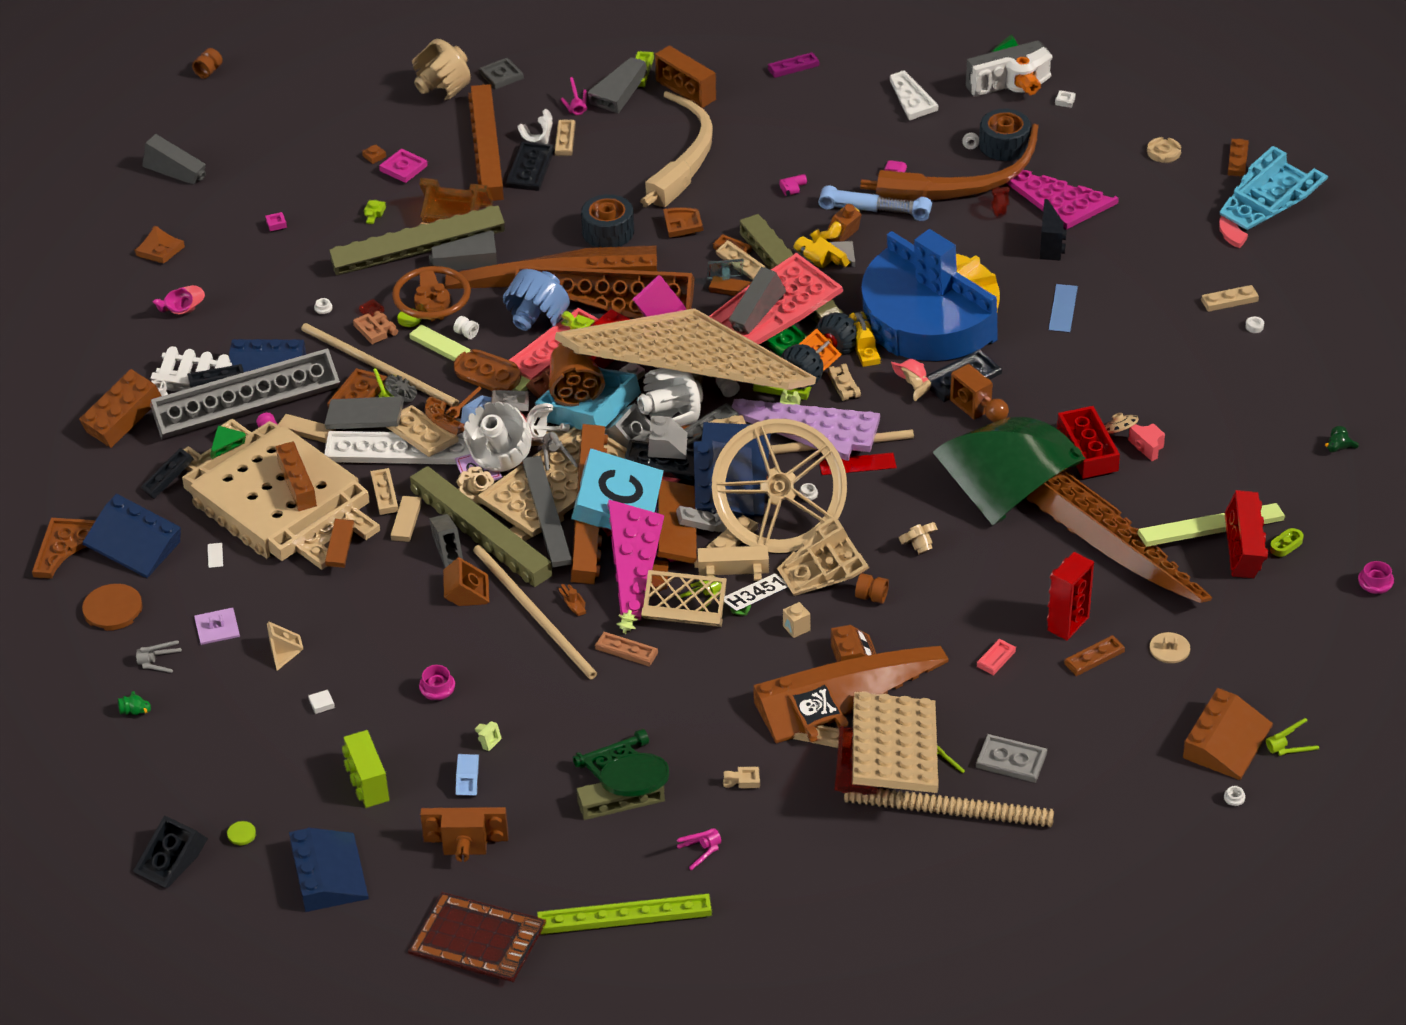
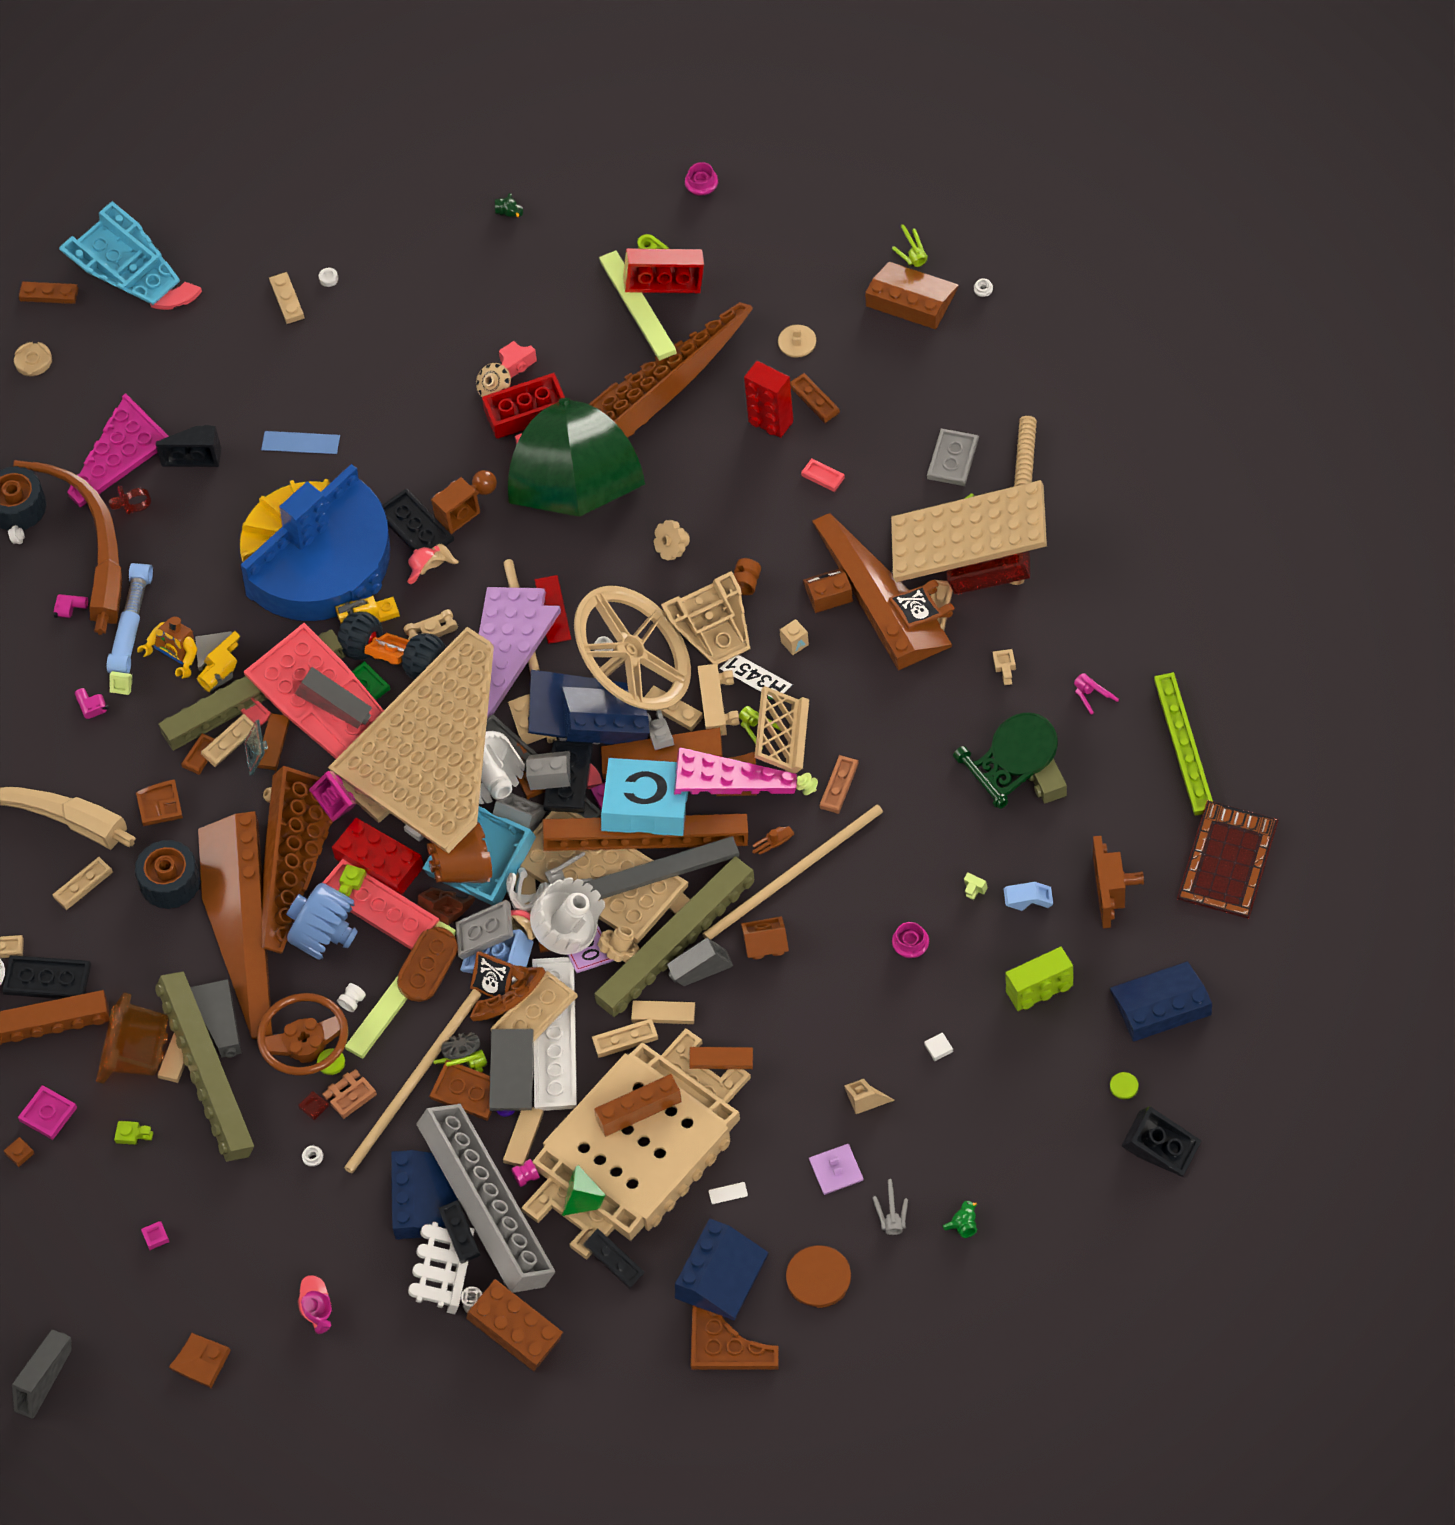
camera: 90 degrees left, 15 degrees up
(616, 183) = (82, 883): none -> tan tile
(810, 199) = (120, 683): none -> yellowish green tile

